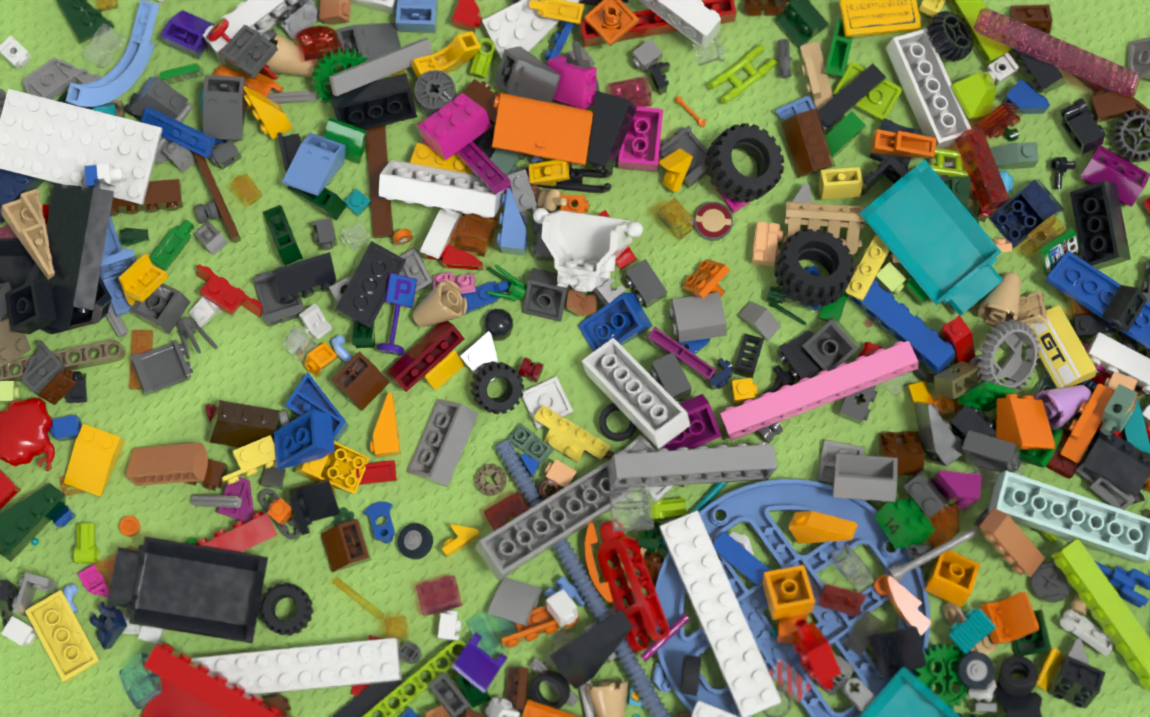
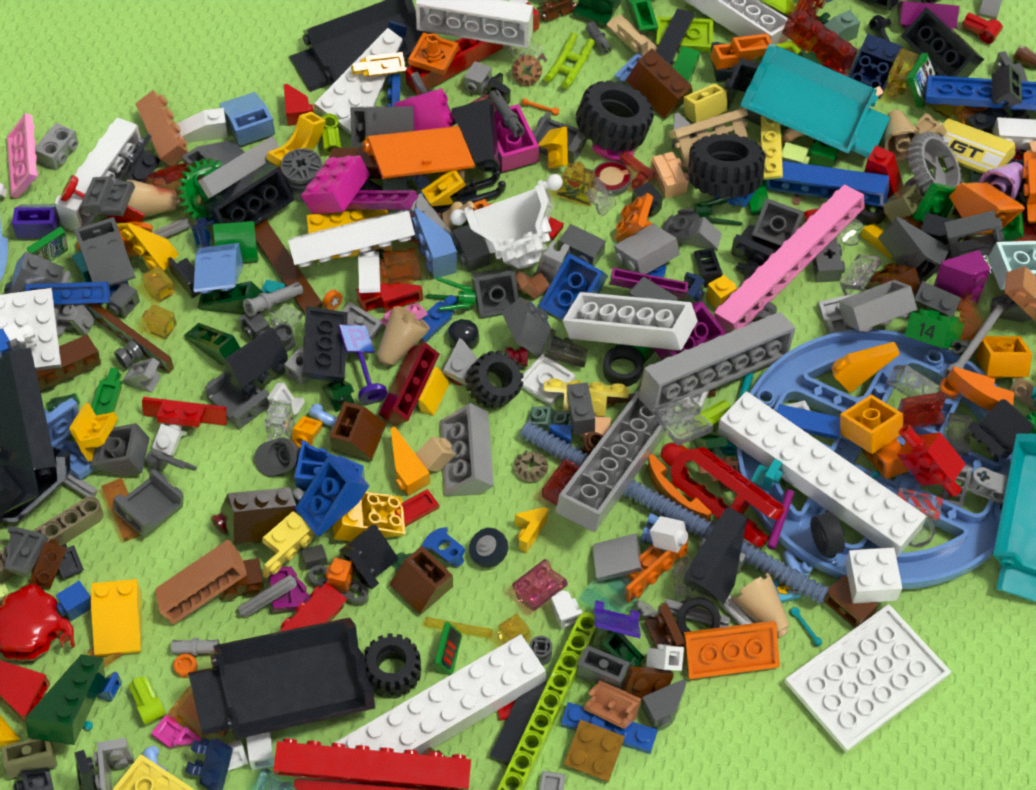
camera: 30 degrees left, 20 degrees down
(143, 514) = (193, 646): none -> light grey pin
(262, 150) = (158, 284): none -> clear yellow brick
(284, 373) = (276, 456): none -> dark grey piece
(320, 115) = (200, 234): none -> clear blue bracket
(338, 615) = (447, 650): none -> slope
(339, 218) = (266, 301): none -> light grey pin
(343, 252) = (285, 335): none -> dark grey wheel
(413, 434) = (435, 453): none -> tan brick
(515, 658) = (646, 609): none -> light grey plant
(551, 349) = (528, 325): none -> dark grey slope
(551, 454) = (580, 408): none -> dark grey brick
(575, 382) = (565, 350): none -> clear smoke wing
(644, 125) = (509, 117): none -> dark grey pin
(673, 594) = (767, 477): none -> teal bracket
(689, 241) = (600, 197): none -> clear plate
(700, 60) = (527, 60): none -> medium nougat gear
(732, 259) = (657, 198): none -> black brick
(743, 231) = (644, 173): none -> clear red piece
(745, 305) = (683, 224): none -> dark grey tile
(876, 431) = (859, 273): none -> clear bracket

